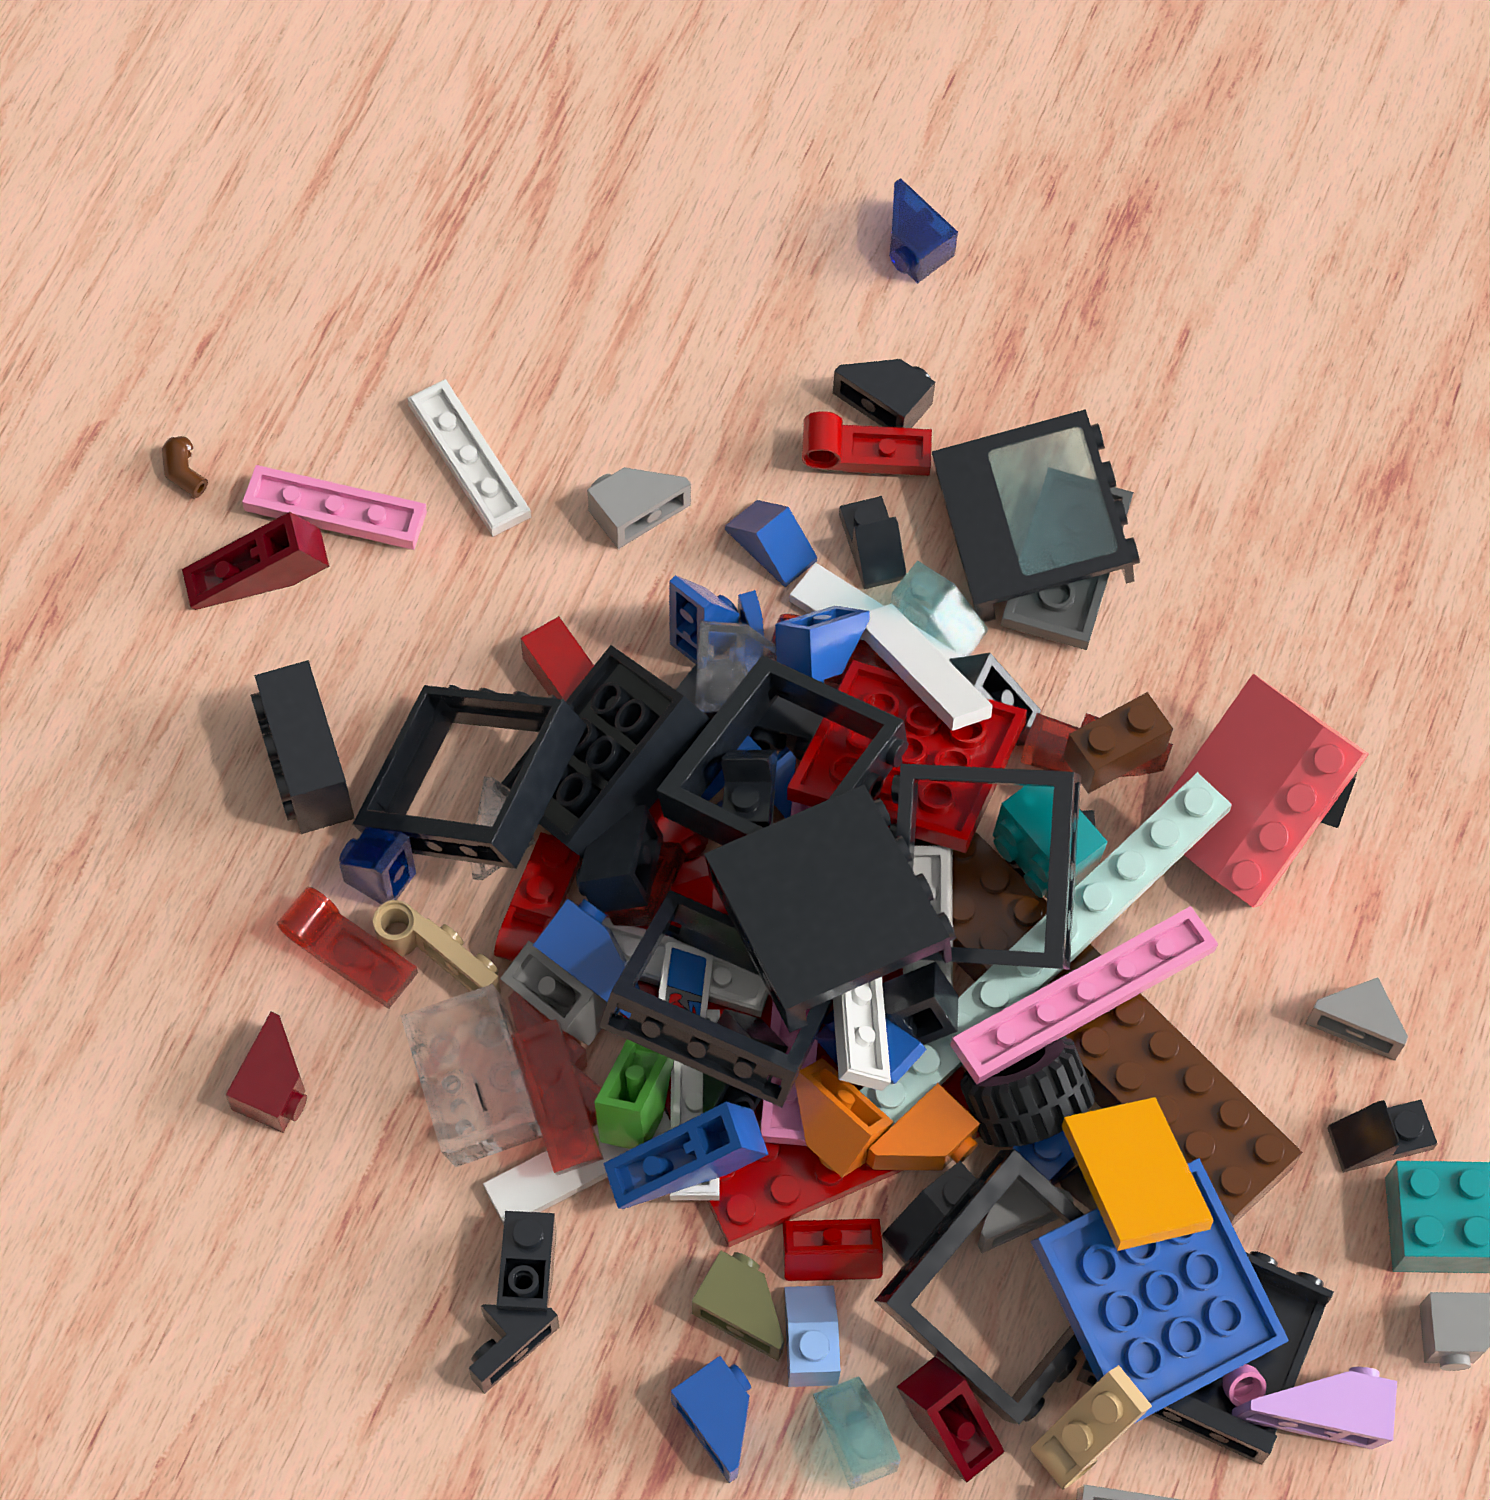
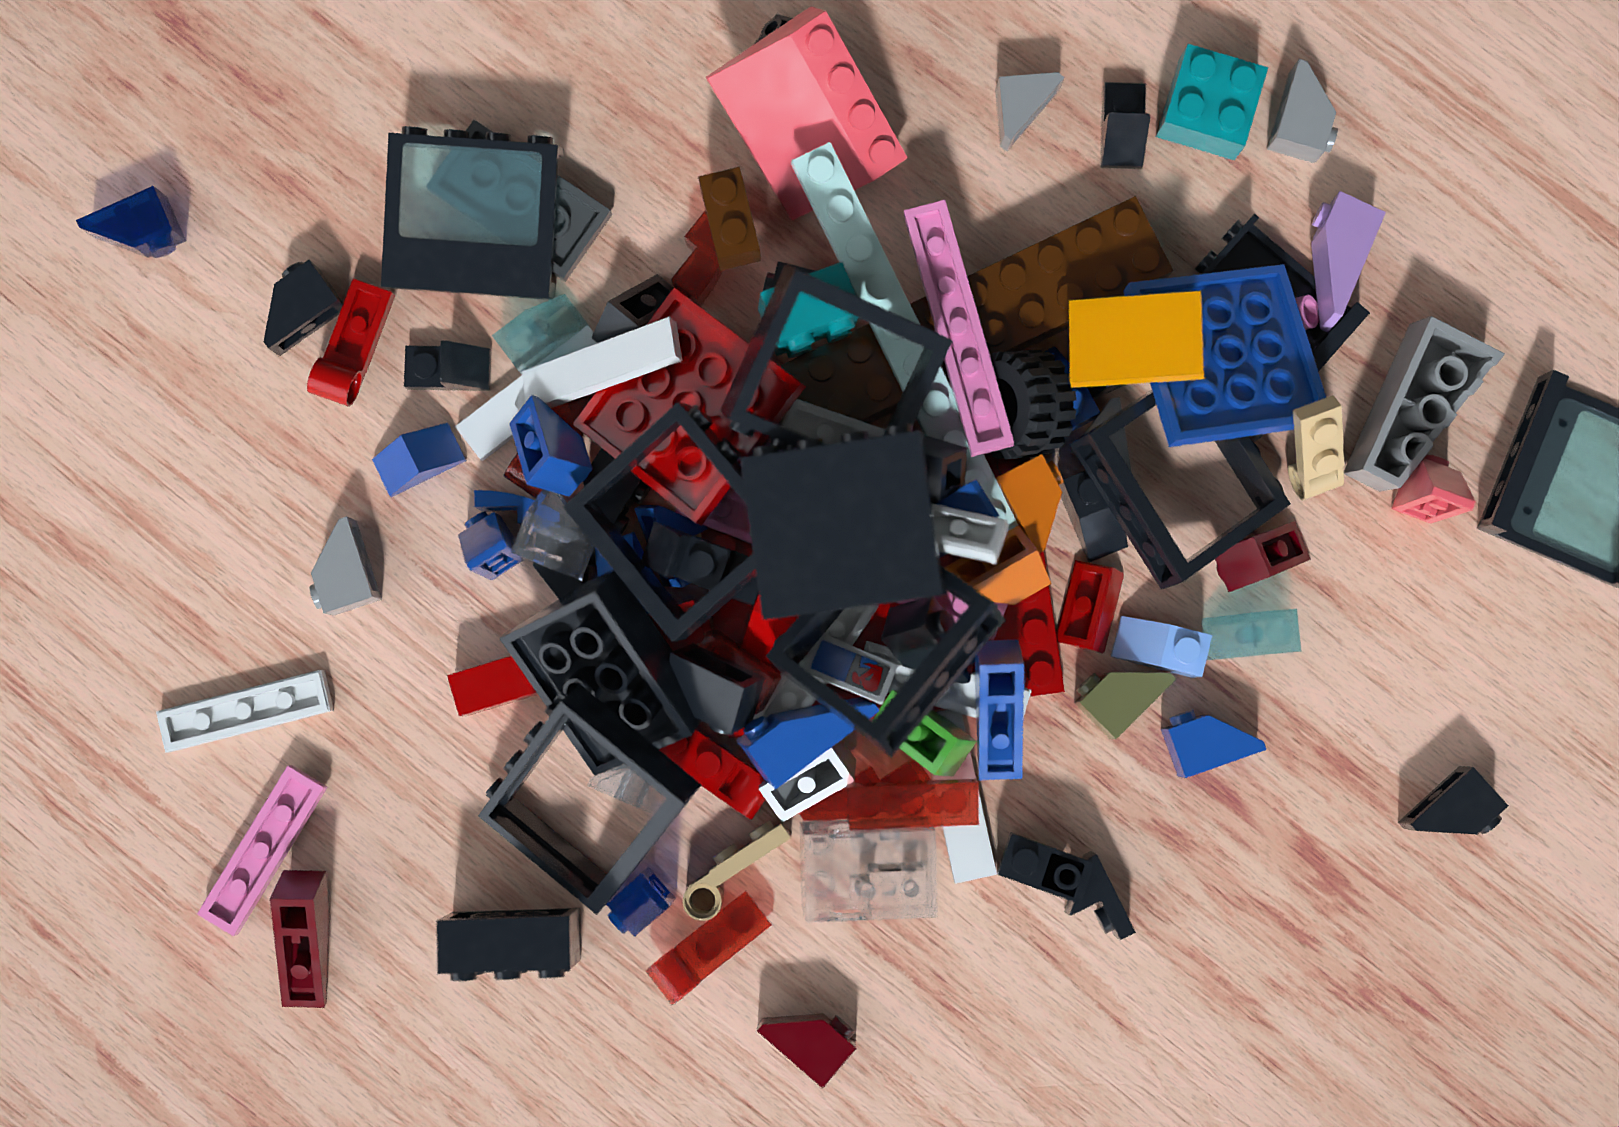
camera: 70 degrees left, 20 degrees up
(176, 466) = (172, 988): reddish brown arm -> none

